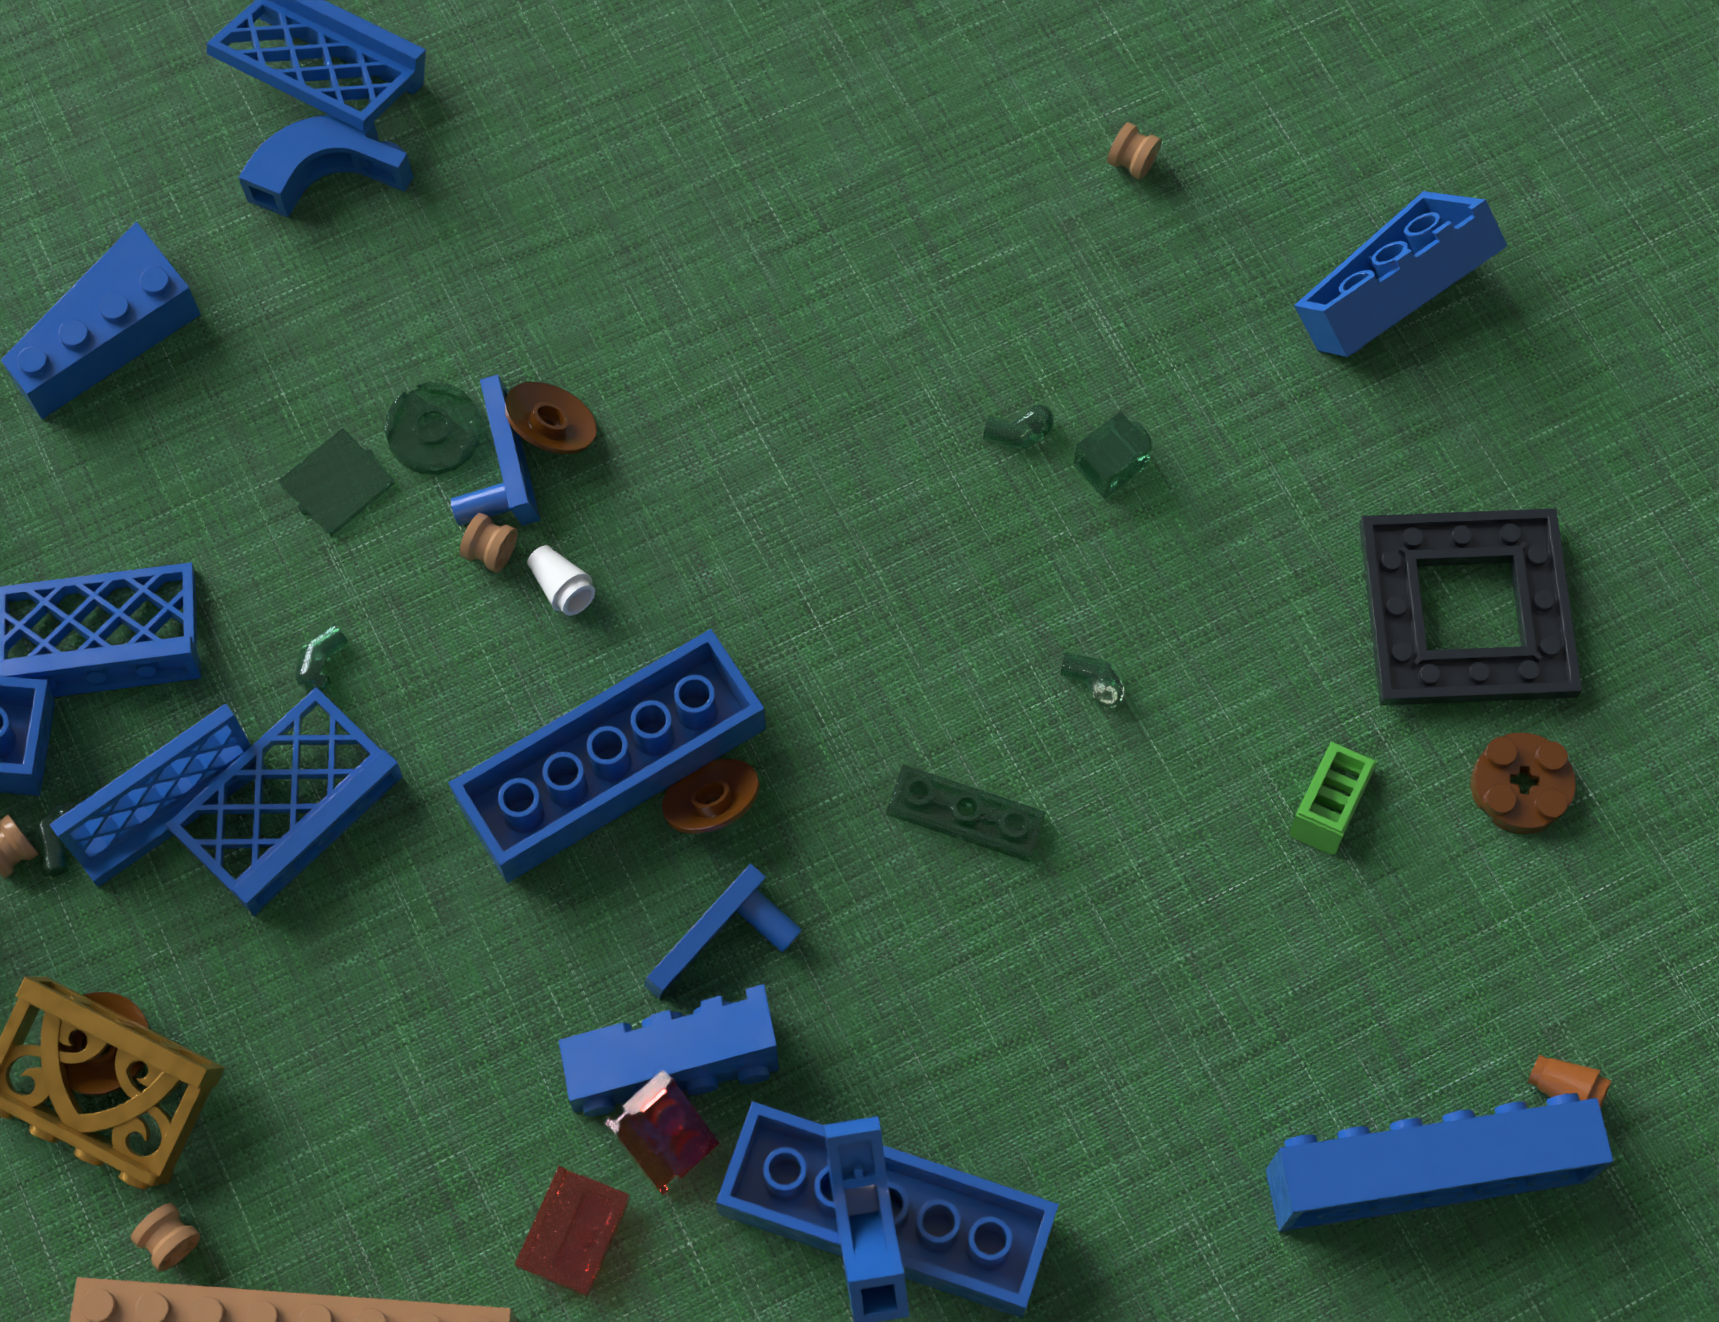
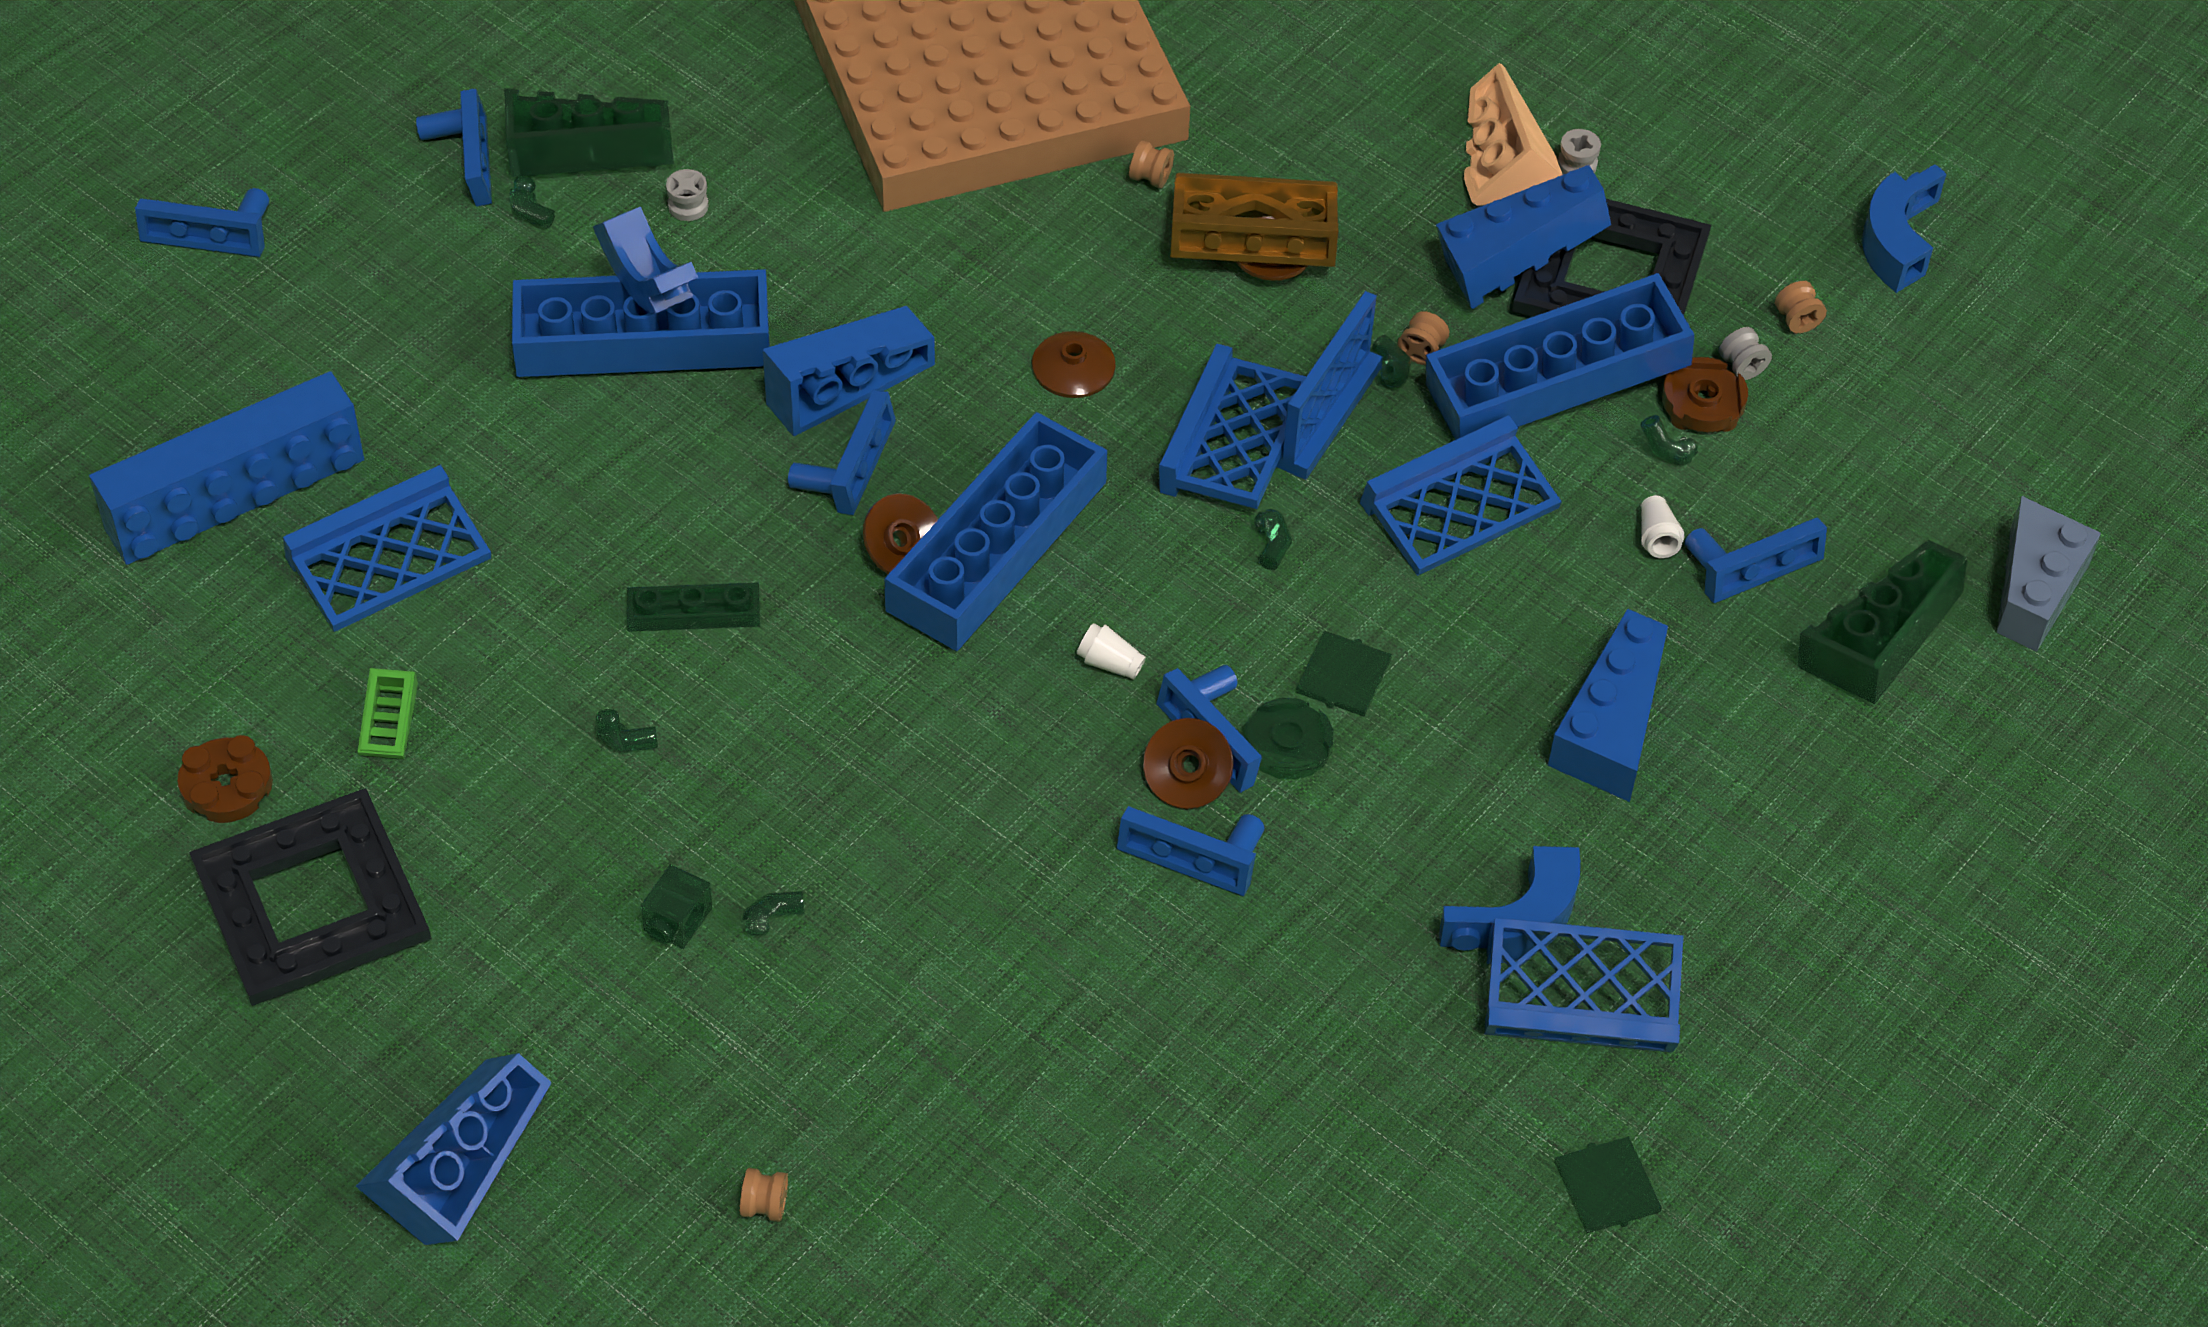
camera: 155 degrees right, 15 degrees down
(412, 1010) = (1073, 364): none -> reddish brown dish
(488, 542) = (1185, 654): medium nougat wheel -> none
(569, 304) = (1191, 852): none -> blue piece
(573, 1231) = (867, 256): clear red plate -> none
(662, 1132) = (830, 307): plate -> none
(1288, 1052) = (362, 523): none -> blue fence
(1562, 1077) = (132, 572): dark orange cone -> none

